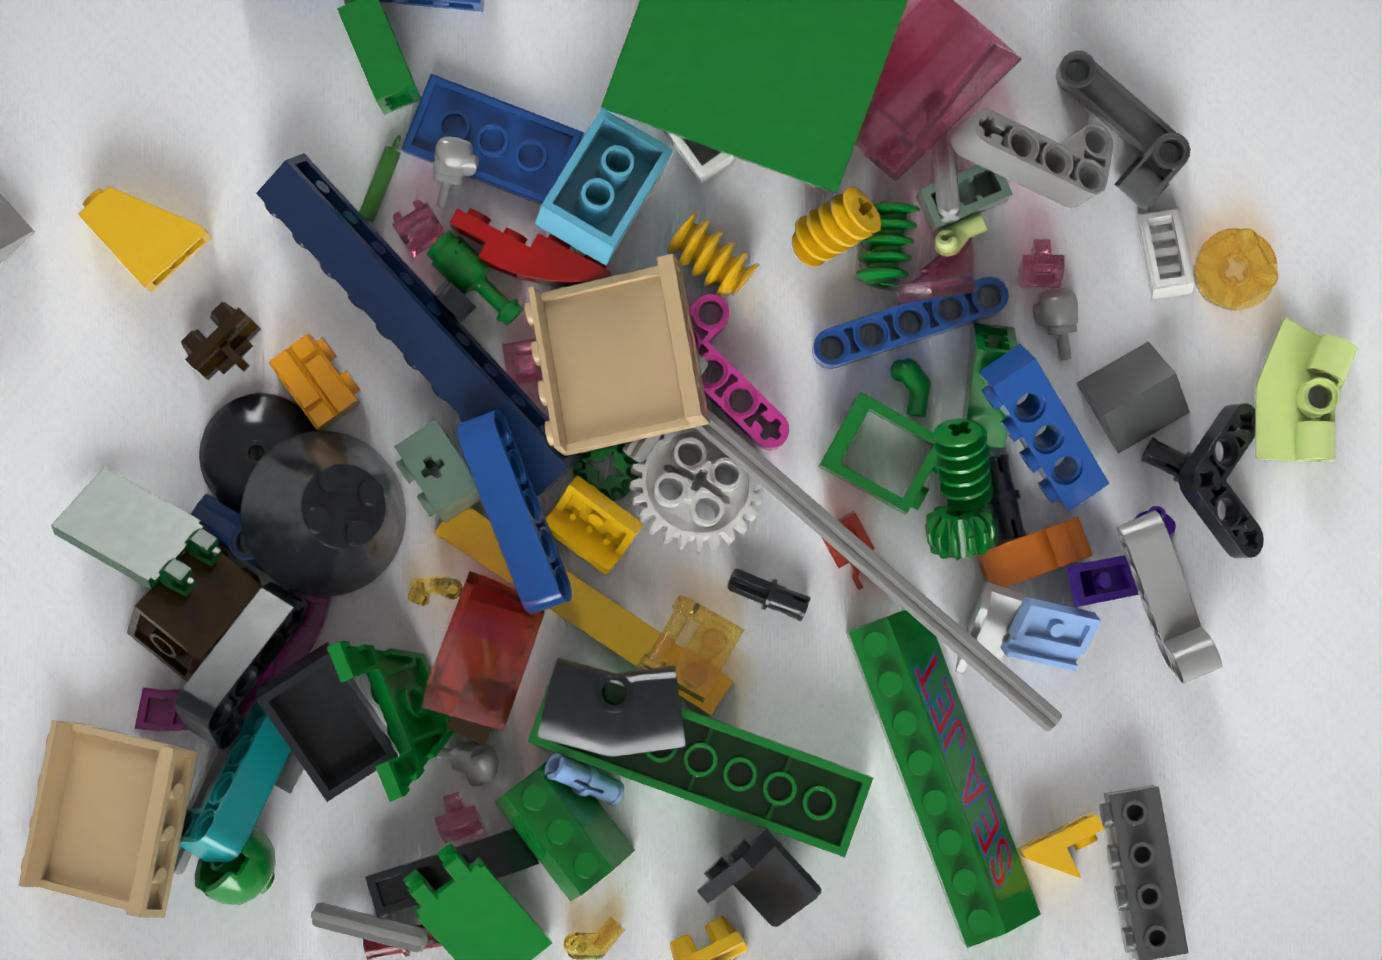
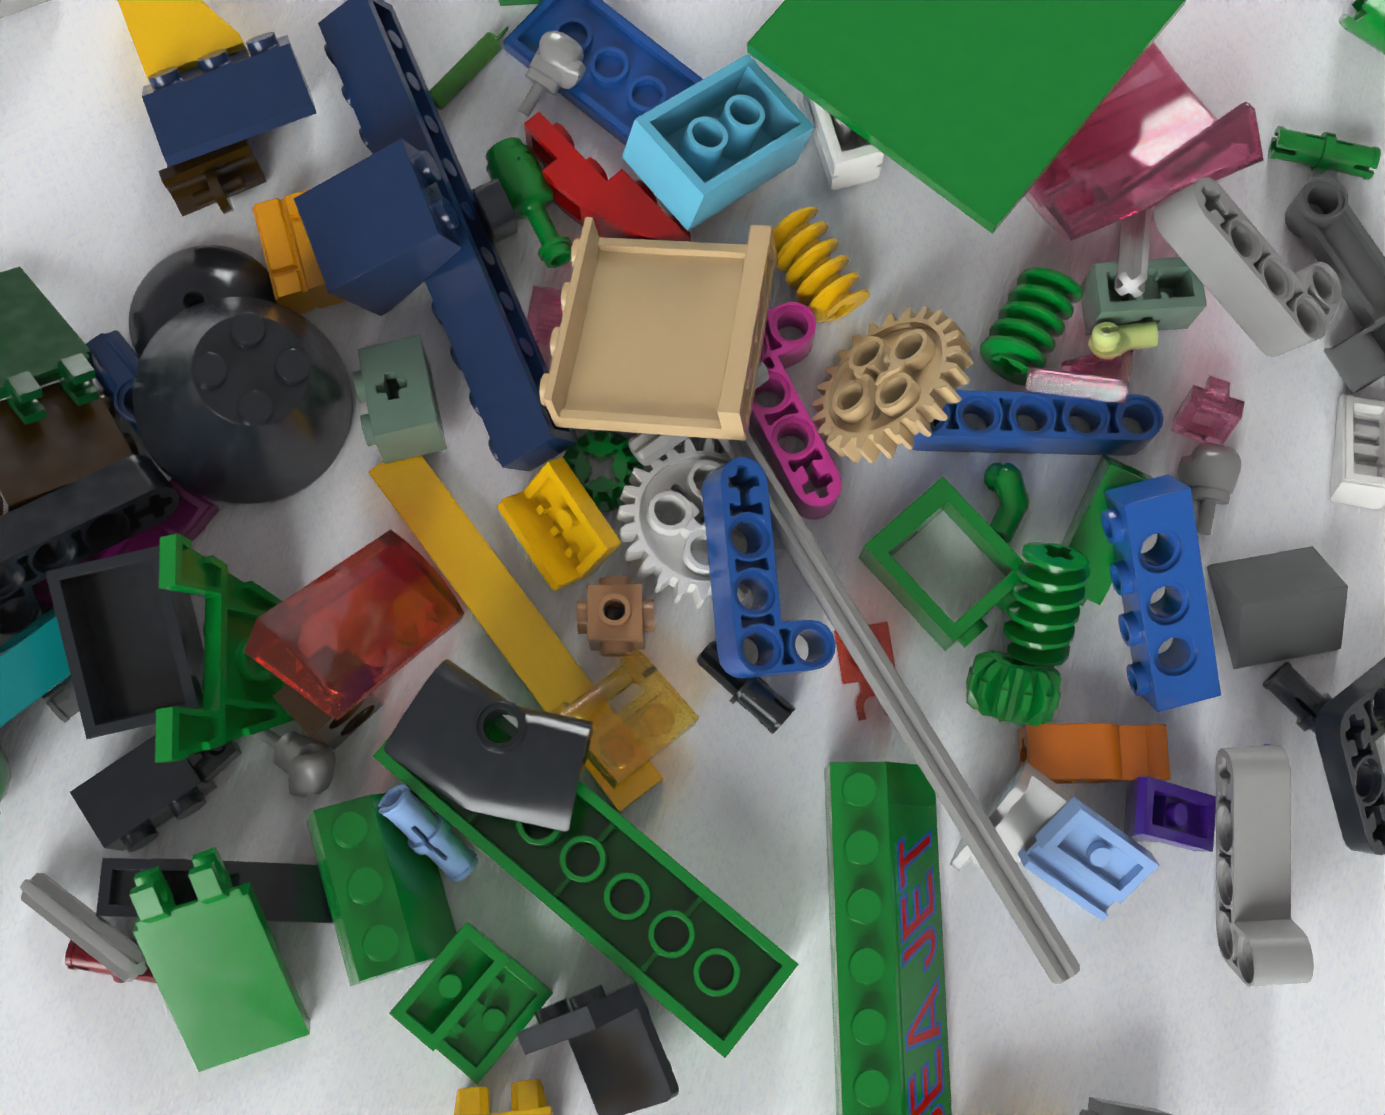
camera: 20 degrees right, 10 degrees down
(216, 284) = (227, 98): none -> dark blue slope
(369, 821) = (139, 795): none -> black hinge
(379, 351) = (380, 227): none -> dark blue slope
(418, 228) = (485, 125): clear pink tile -> none
(438, 585) = (332, 531): clear yellow arm -> none
(459, 821) = (254, 831): clear pink tile -> none
(514, 511) = (468, 471): blue beam -> none
(593, 945) = (360, 1056): clear yellow arm -> none
(658, 881) = (471, 1002): none -> green slope
(668, 592) = (618, 636): none -> medium nougat brick
(748, 511) = (758, 572): none -> blue beam
(799, 337) = (892, 384): none -> tan gear
(834, 227) = (977, 276): yellow piece -> none
(1005, 499) = (1079, 674): black pin -> none
(1070, 19) = (1324, 152): none -> green pin

